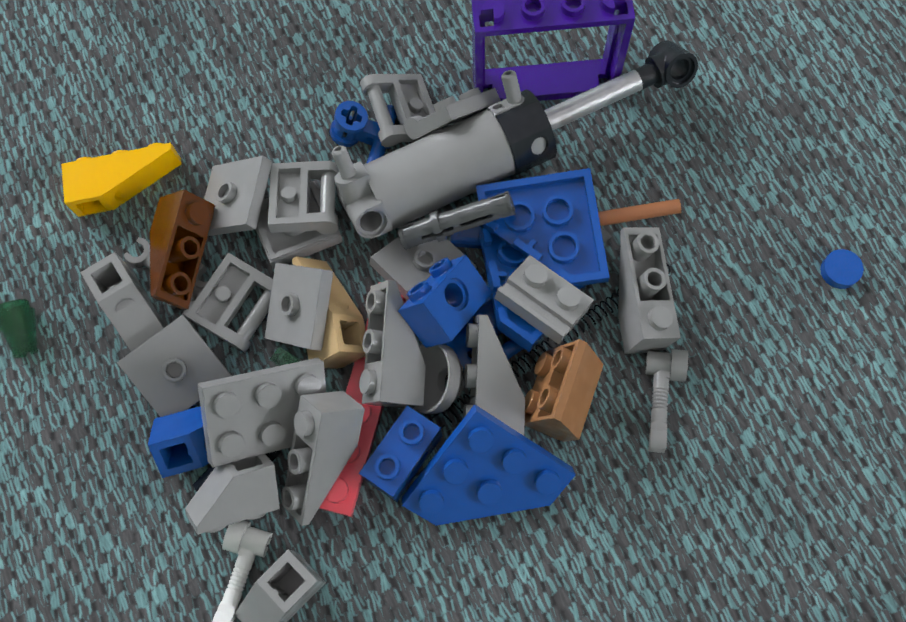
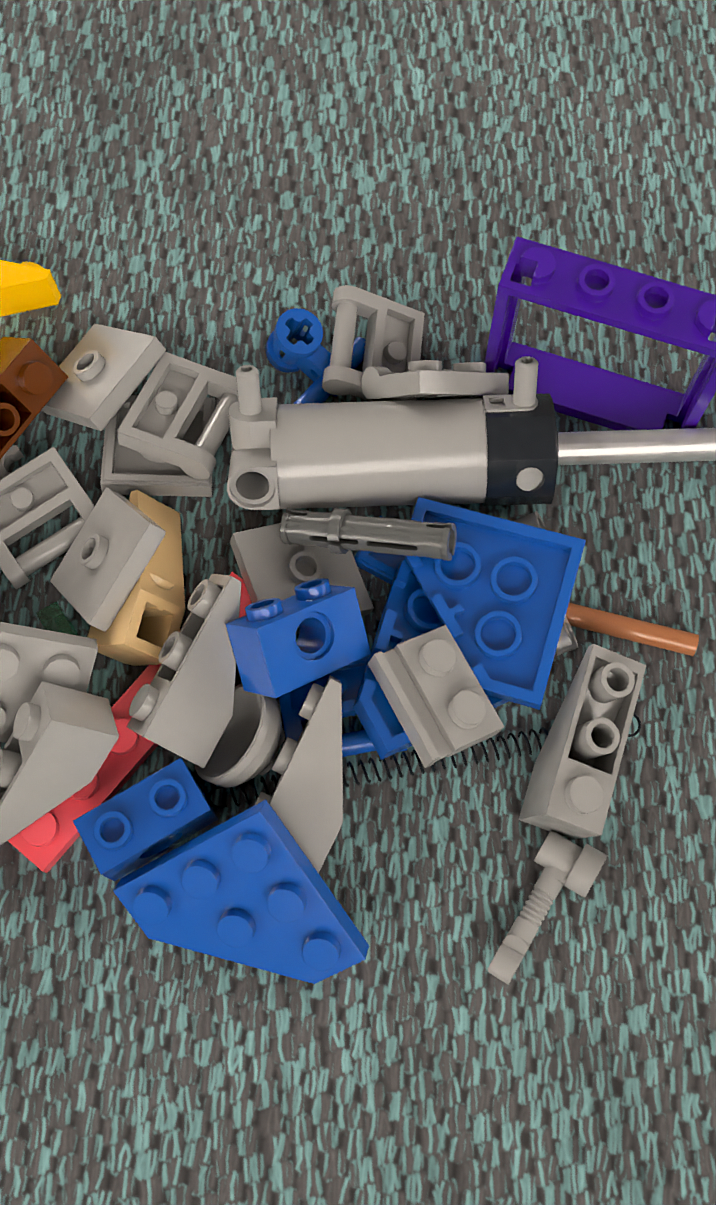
camera: 20 degrees right, 0 degrees up
(563, 390) = (402, 834): medium nougat slope -> none

